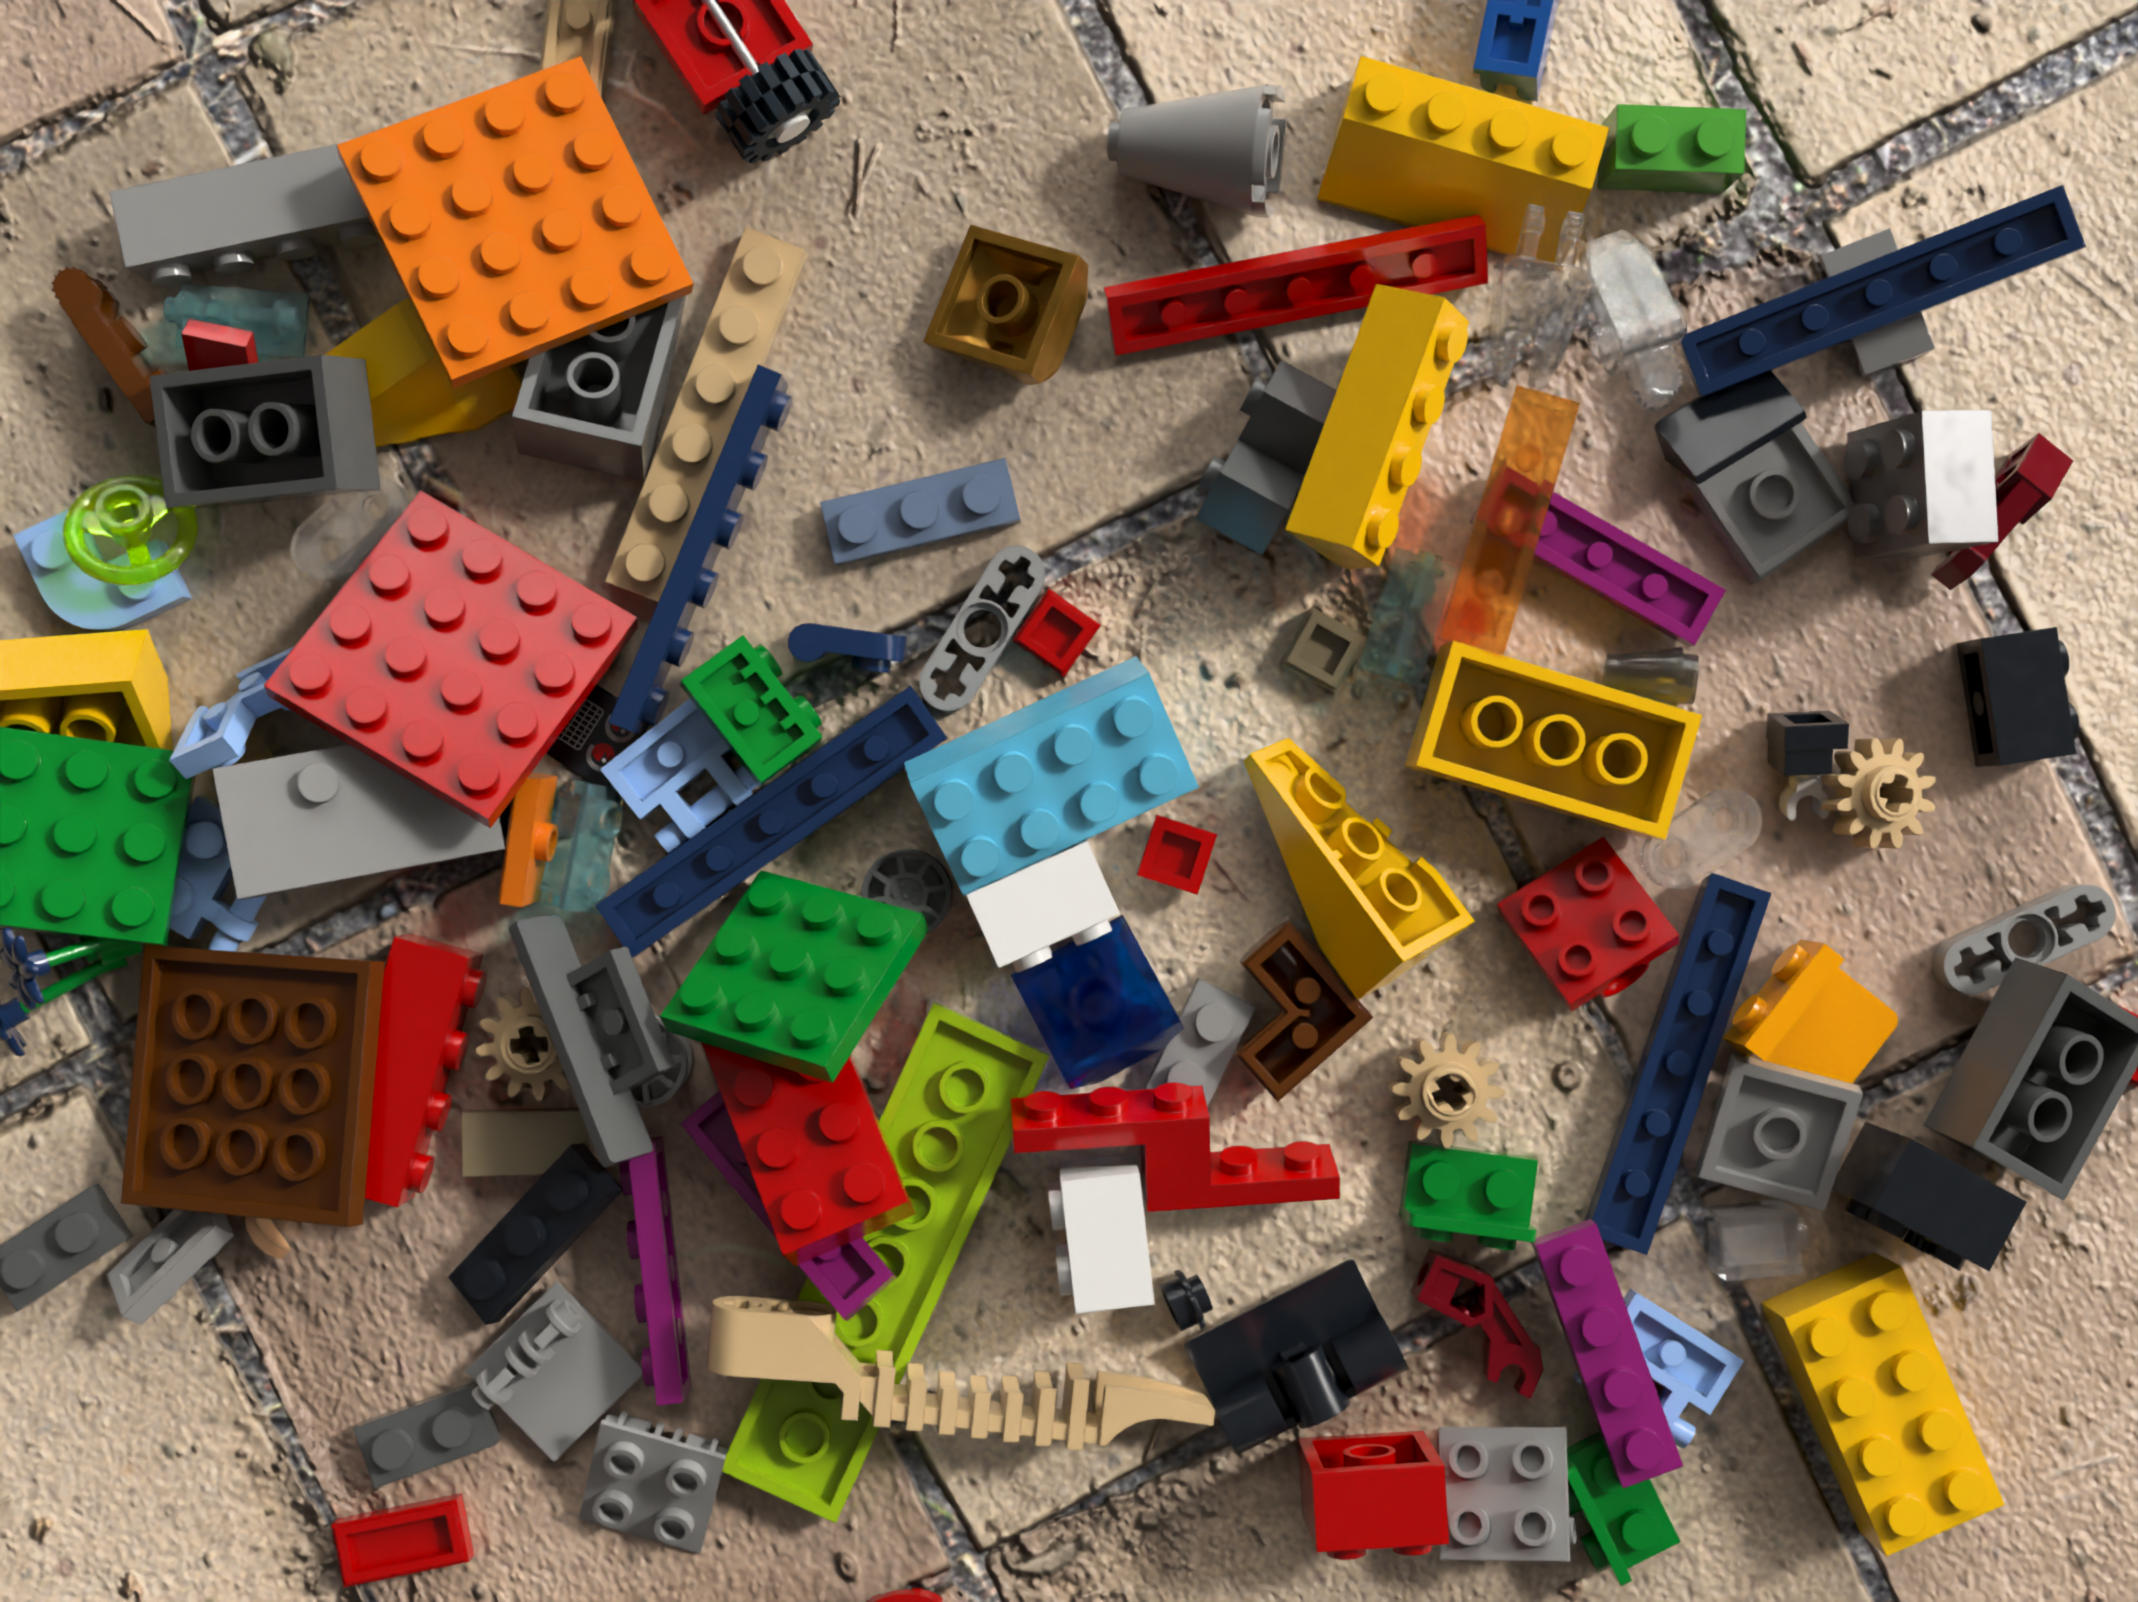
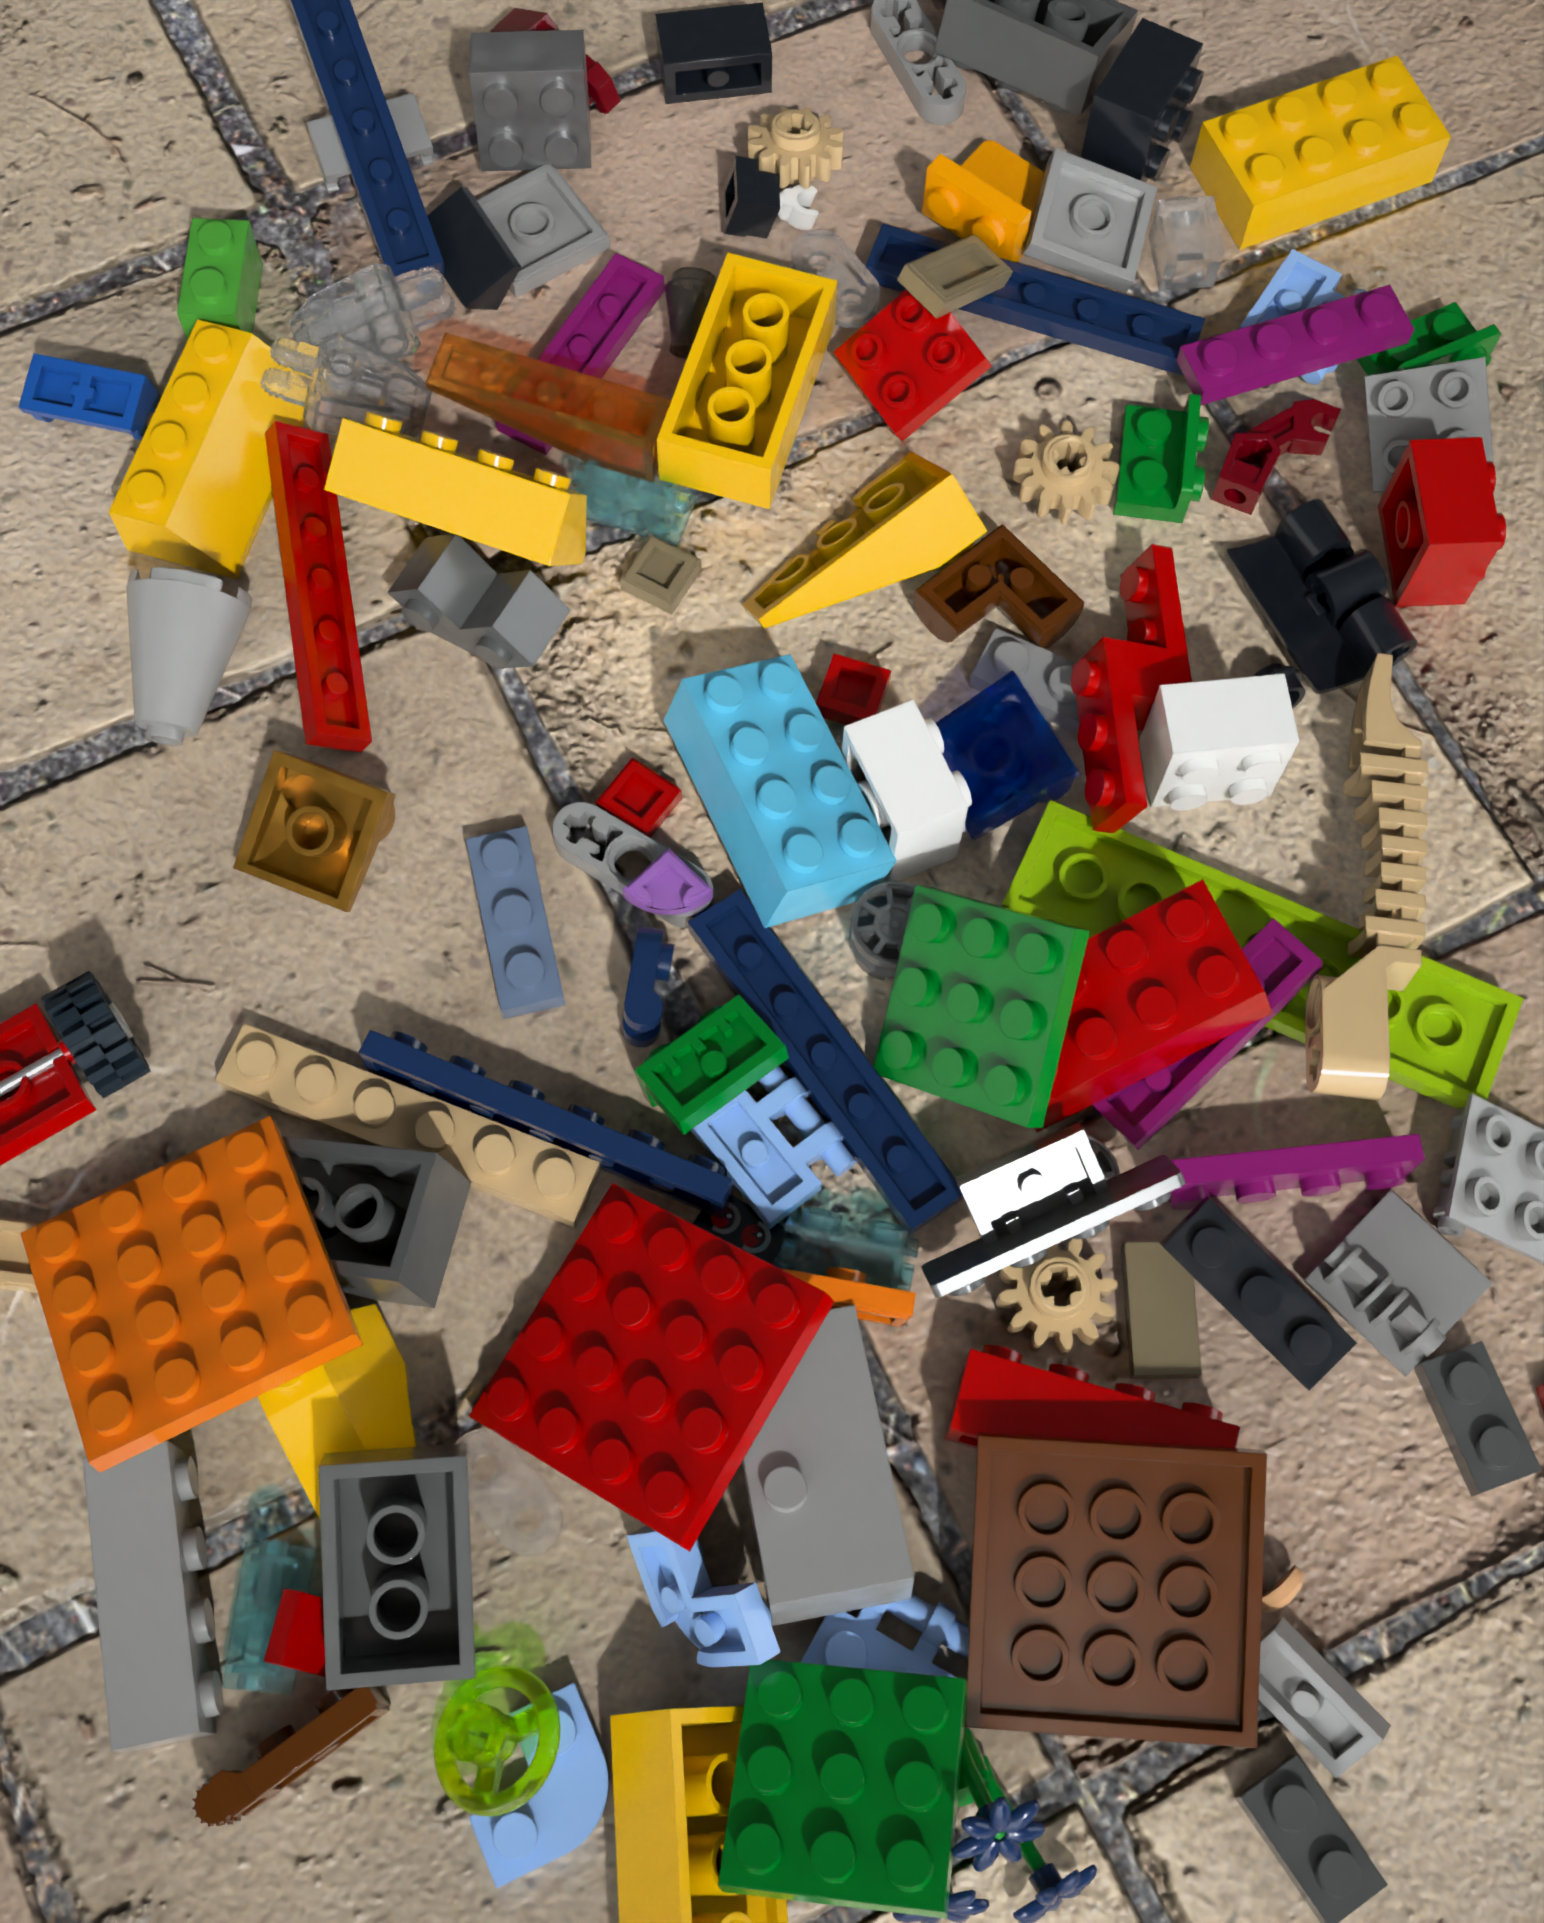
camera: 90 degrees left, 20 degrees down
(945, 664) = (668, 887): none -> medium lavender tile
(1680, 972) = (955, 275): none -> dark tan tile

